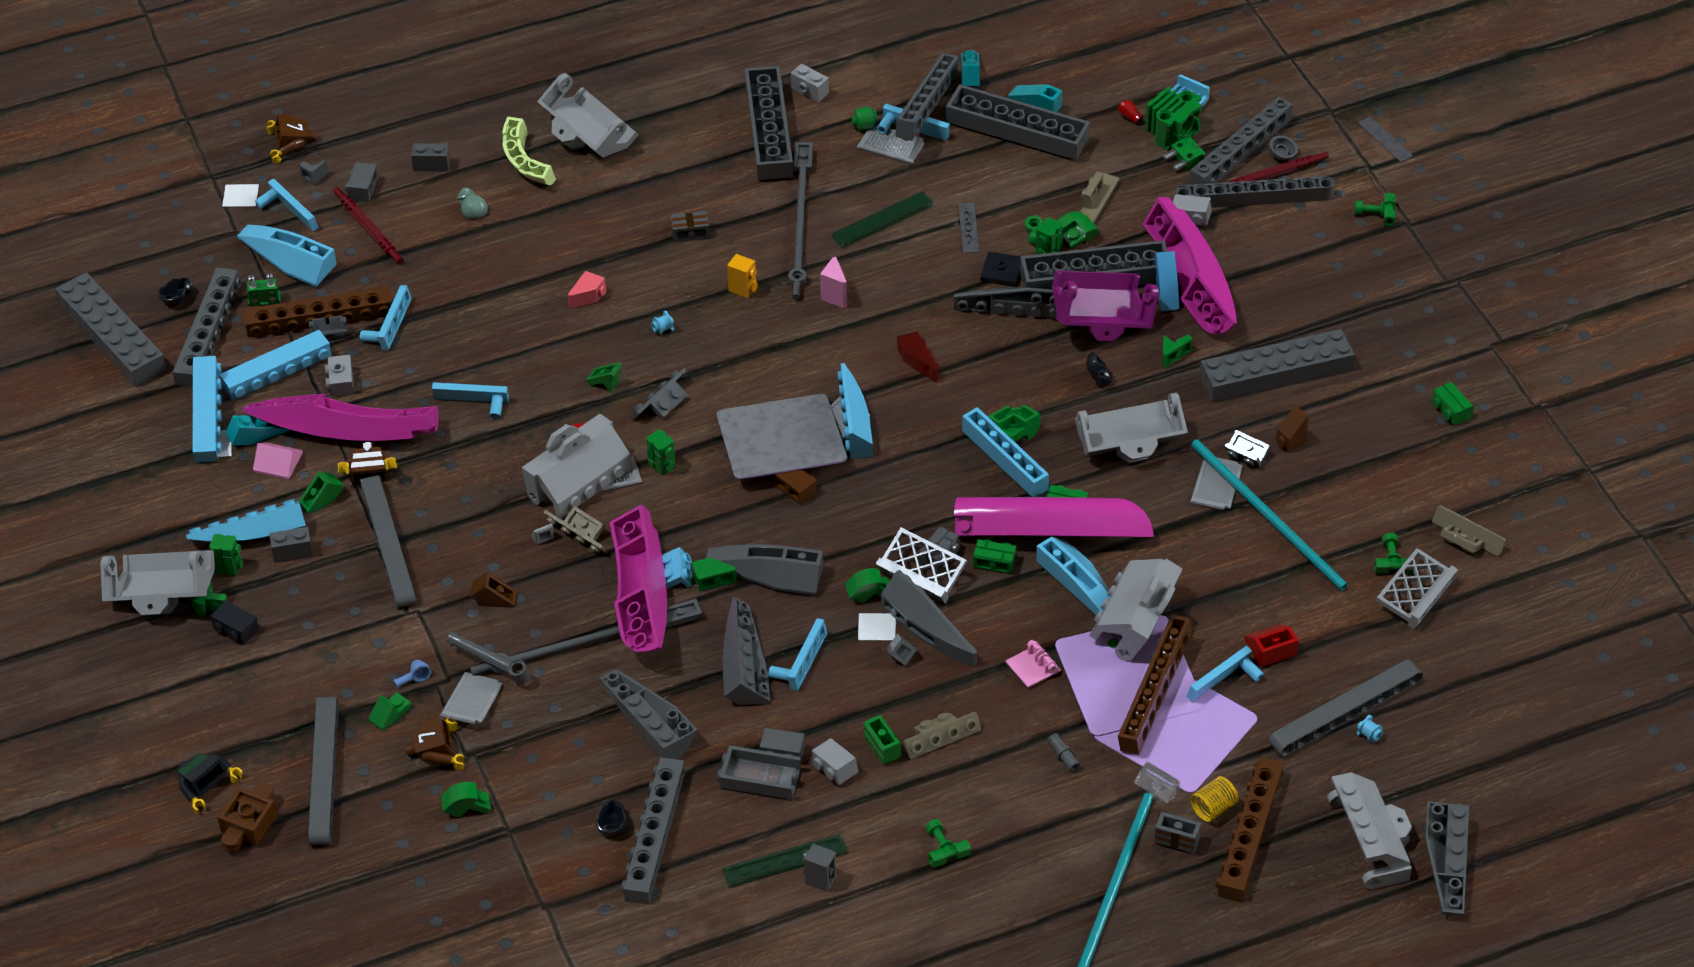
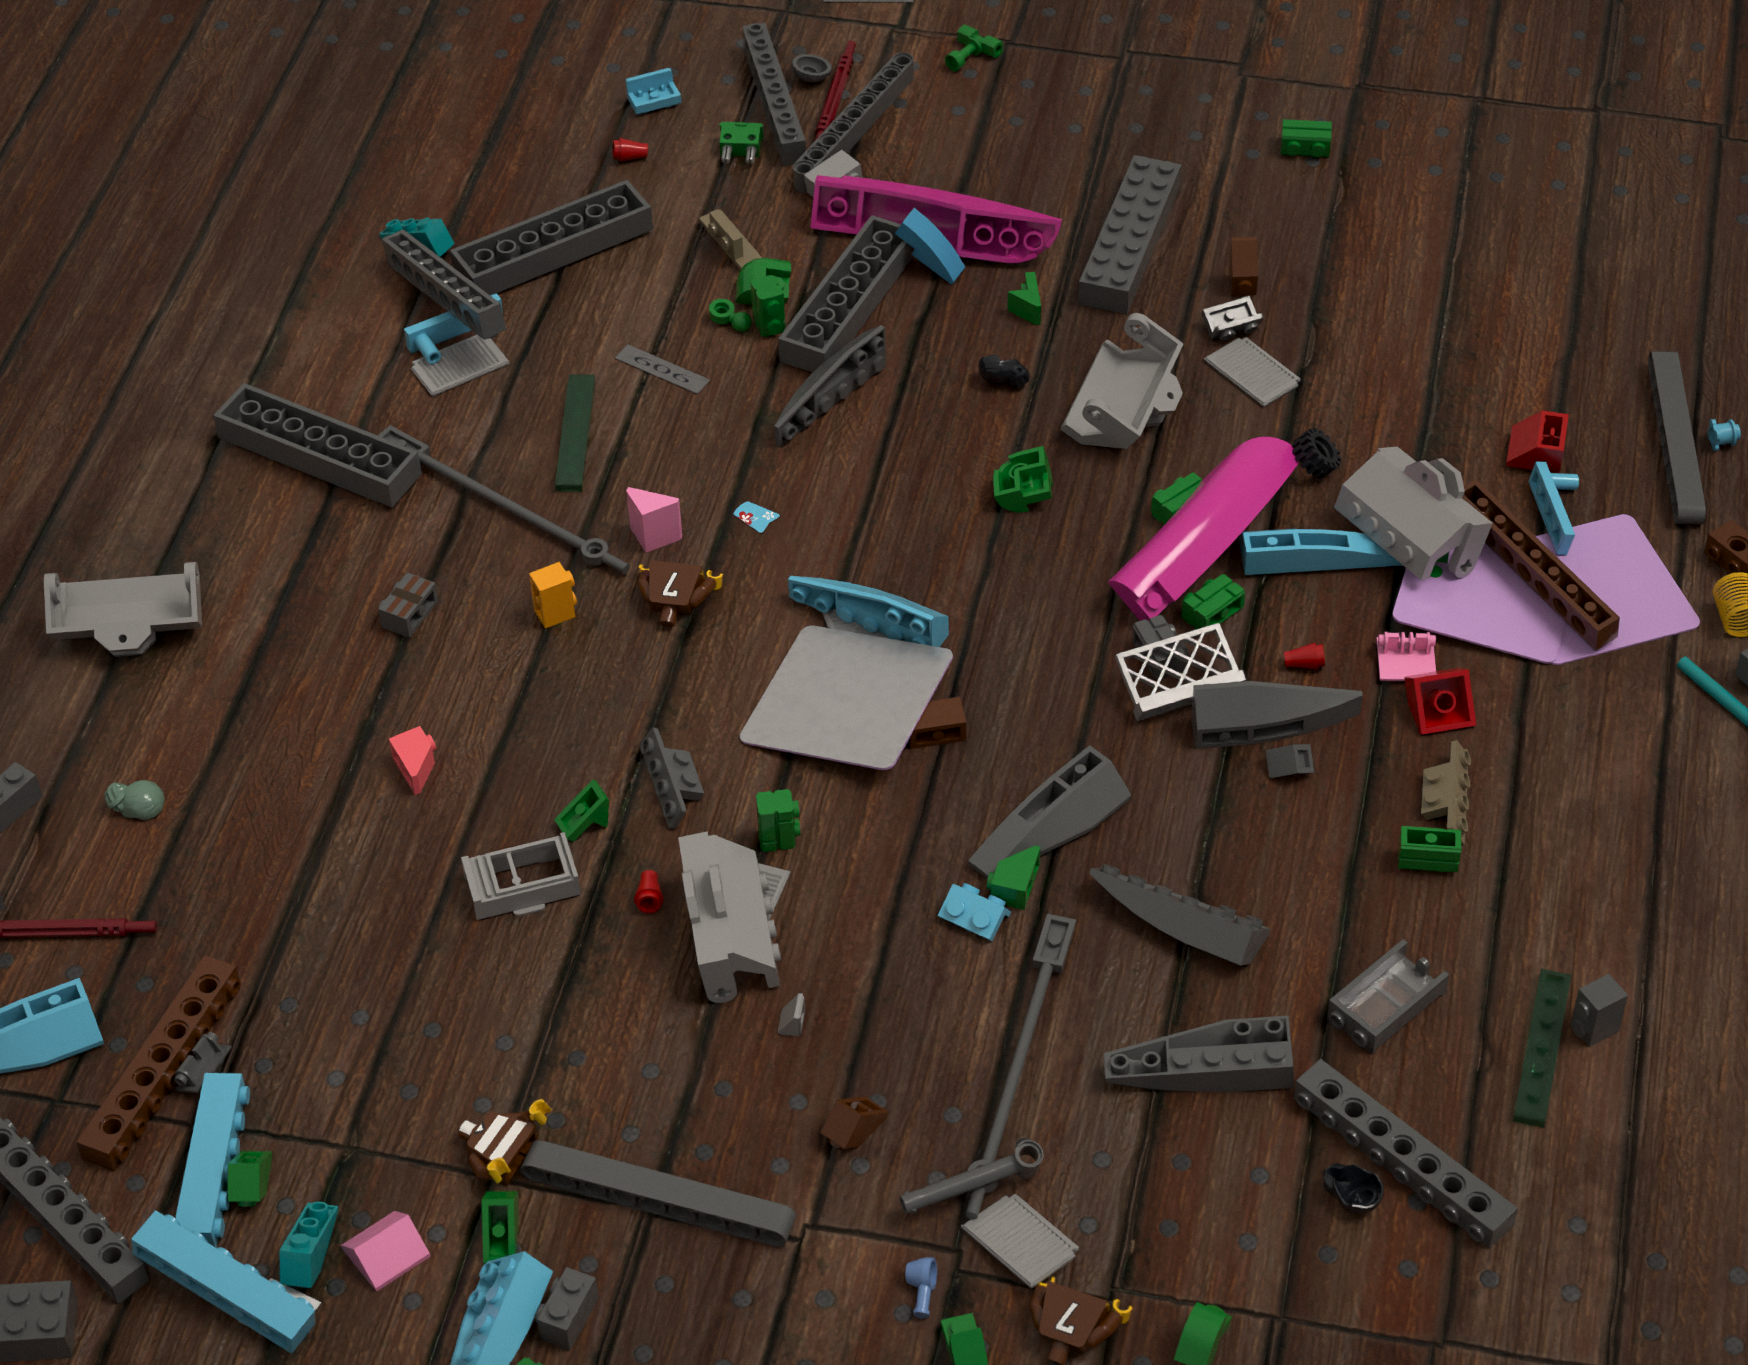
camera: 55 degrees left, 0 degrees up
(263, 291) = (59, 1105): green piece -> none
(277, 383) = (249, 1177): none -> green slope
(340, 375) = (304, 1095): light grey brick -> none
(341, 420) = (398, 1131): dark pink slope -> none
(392, 320) = (280, 1008): medium azure piece -> none
(466, 392) = (504, 942): medium azure piece -> none
(514, 141) = (111, 706): yellowish green brick -> none
(535, 388) = (525, 897): none -> light grey piece
(582, 525) = (820, 967): dark tan bracket -> none
(641, 581) = (987, 953): dark pink slope -> none
(662, 323) = (547, 712): medium azure brick -> none
(783, 742) = (1358, 950): dark grey brick -> none
(796, 324) = (675, 588): none -> reddish brown torso
(804, 659) = (1251, 877): medium azure piece -> none
(809, 83) = (295, 370): light grey brick -> none
(834, 761) = (1428, 912): light grey brick -> none
(864, 118) = (401, 360): green head -> none
(865, 584) = (1167, 738): green brick -> none
(876, 626) = (1225, 769): white sticker -> none
(889, 328) = (755, 515): none -> medium azure sticker
(916, 355) = (831, 510): clear red slope -> none
(946, 847) = (1641, 879): green bar -> none
(992, 619) = (1305, 657): none -> red cone
(1001, 269) = (760, 373): black plate -> none
(1005, 452) = (1063, 510): medium azure brick -> none
(1009, 694) = (1441, 700): none -> red slope
(1038, 95) = (526, 203): teal slope -> none
(1063, 752) = (1565, 699): dark grey pin -> none
(1103, 302) = (921, 313): magenta piece -> none
(1148, 541) = (1316, 453): none -> black tyre
(1157, 782) = (1669, 642): clear slope -> none
(1173, 116) = (685, 117): green piece -> none
(1269, 515) = (1340, 352): teal piece -> none
(1393, 560) = (1493, 295): green bar -> none
(1428, 599) = (1564, 287): light grey fence -> none
(1467, 533) = (1498, 221): dark tan bracket -> none

